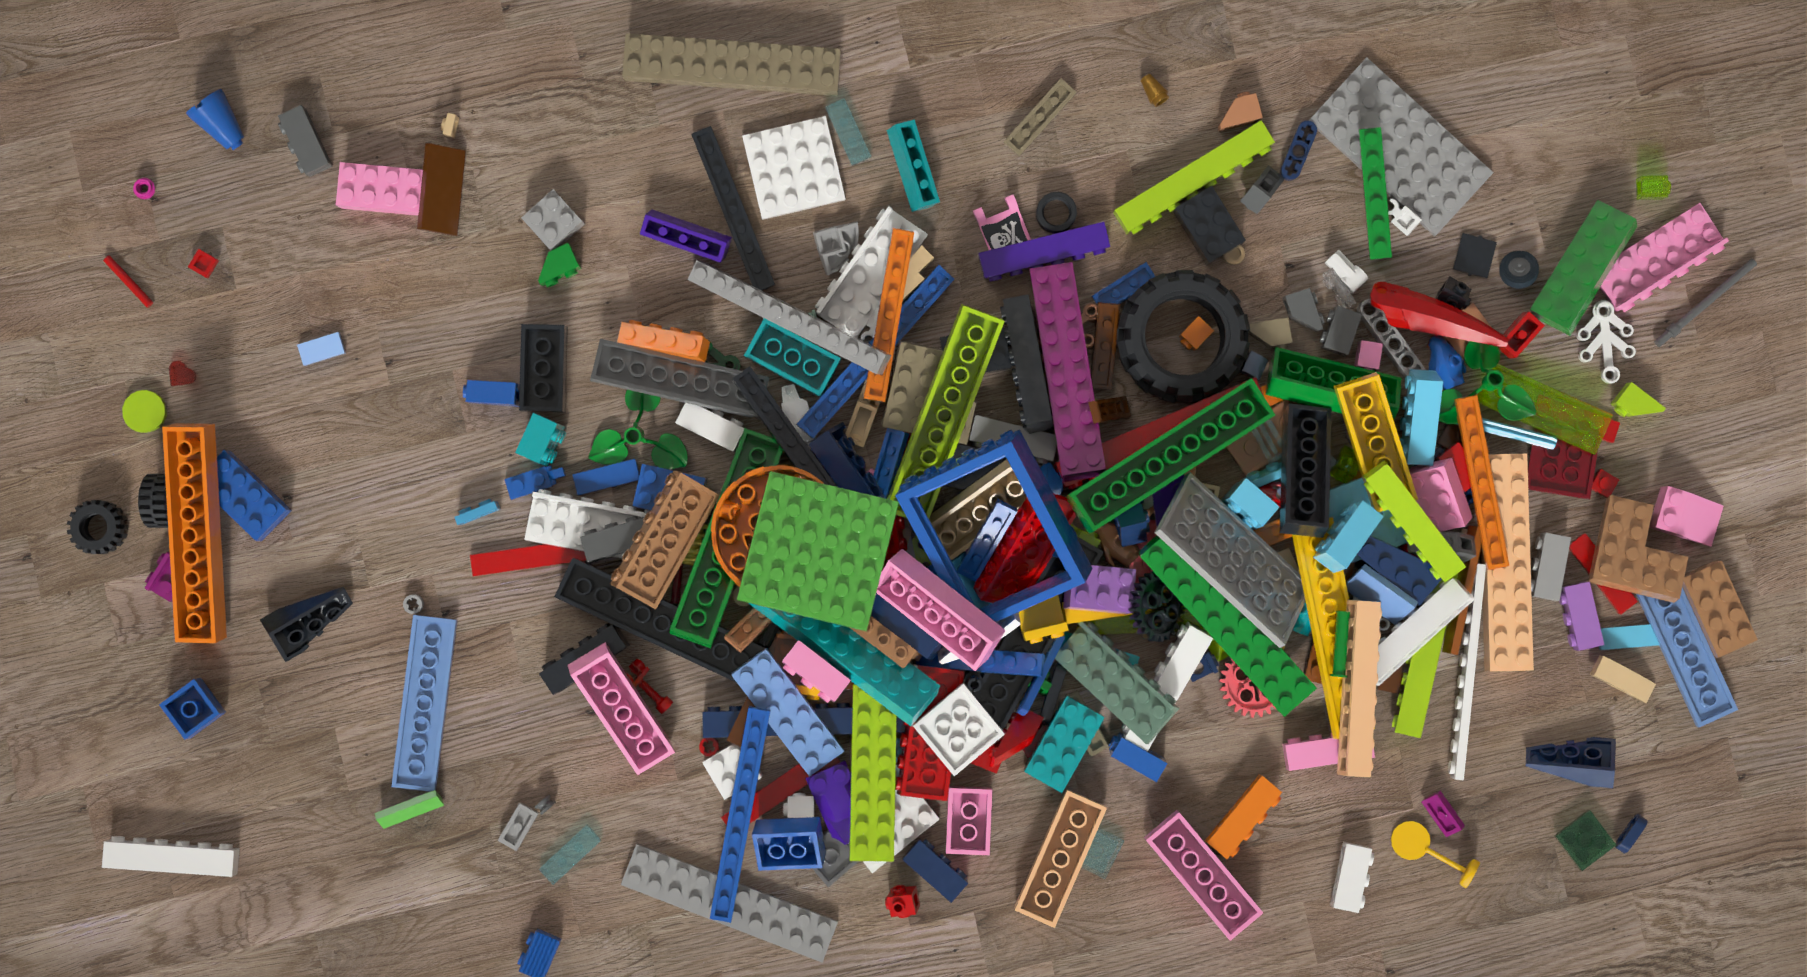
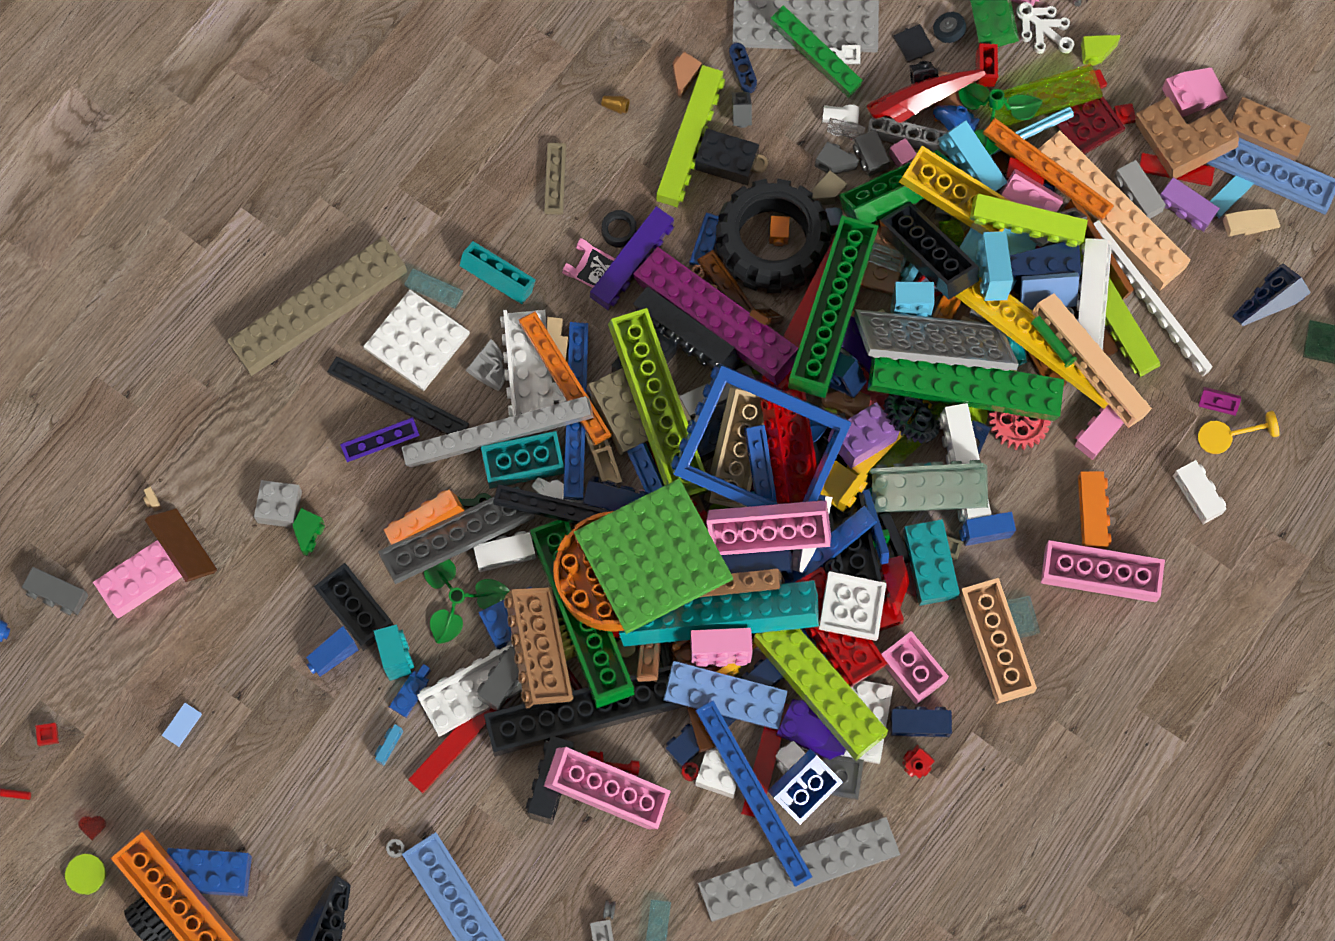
camera: 40 degrees left, 15 degrees down
(606, 477) = (460, 646): blue tile -> none

